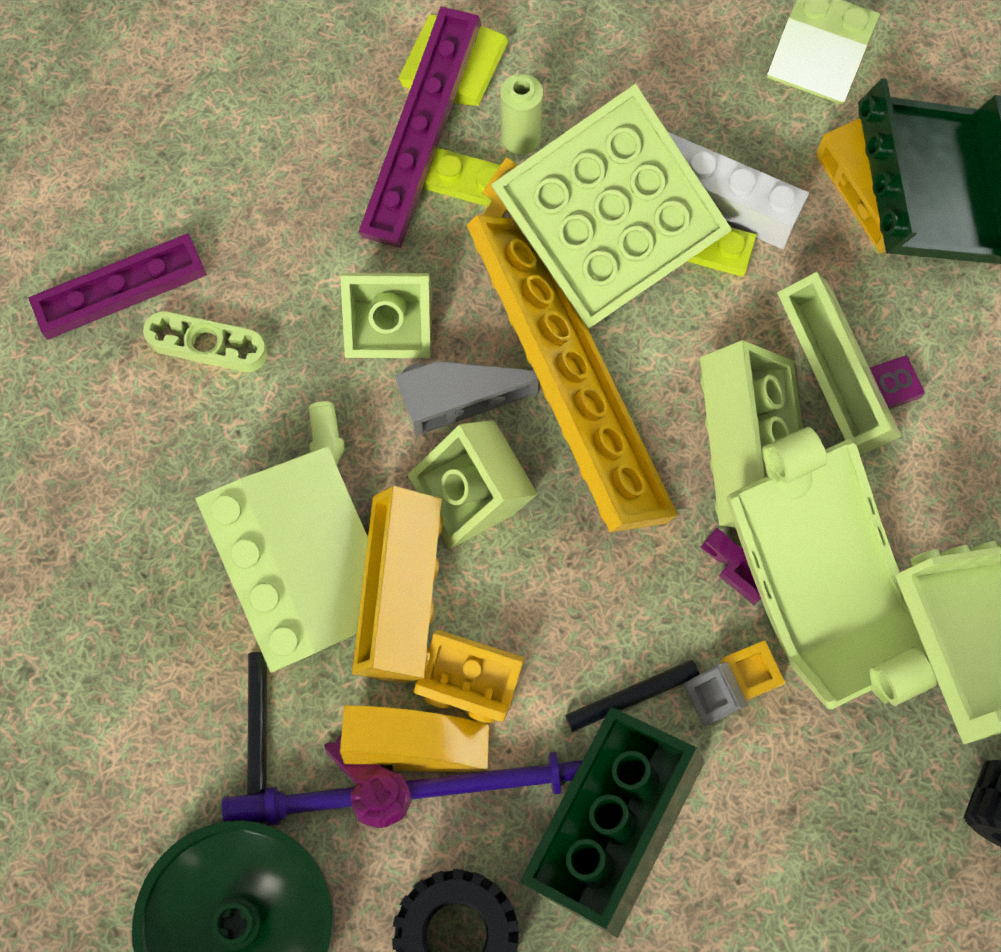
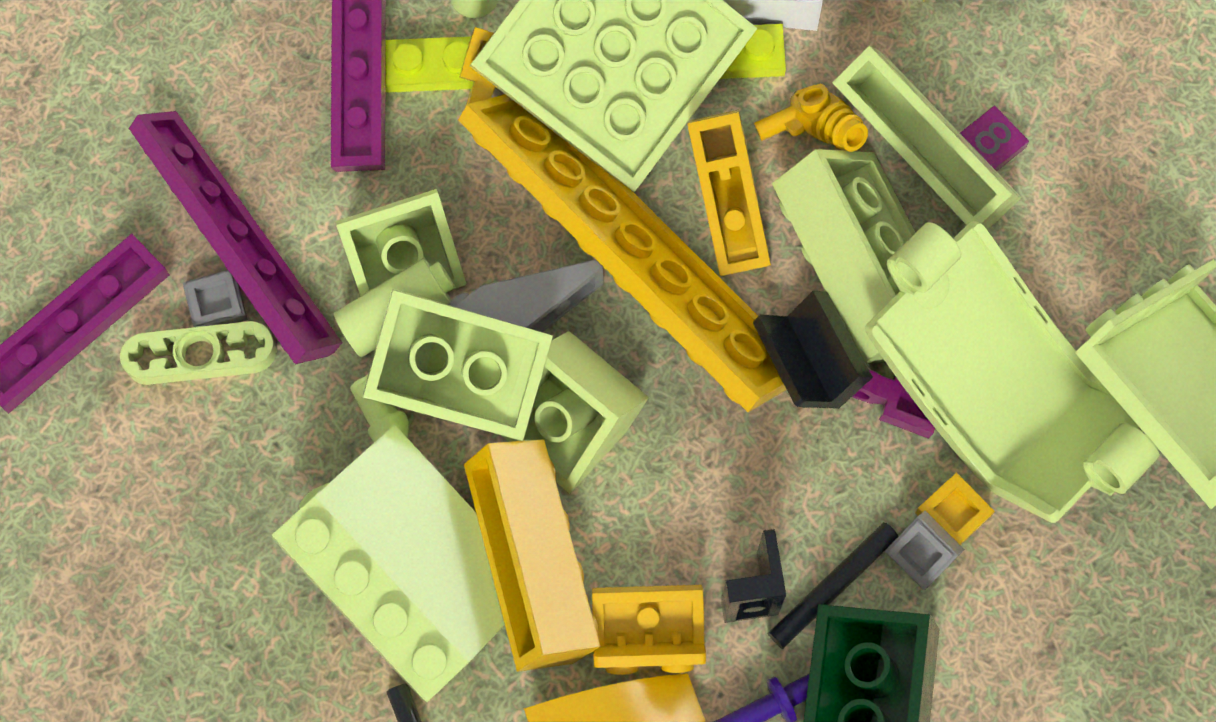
camera: 20 degrees left, 0 degrees up
(233, 305) = (214, 300): none -> light grey tile
(266, 262) = (235, 236): none -> magenta plate
(365, 355) = (364, 316): none -> yellowish green brick
(391, 415) = (457, 365): none -> yellowish green slope
(564, 681) = (760, 594): none -> black panel
(663, 353) = (729, 192): none -> yellow slope
(683, 504) = (814, 353): none -> black panel
(760, 317) = (819, 115): none -> yellow piece

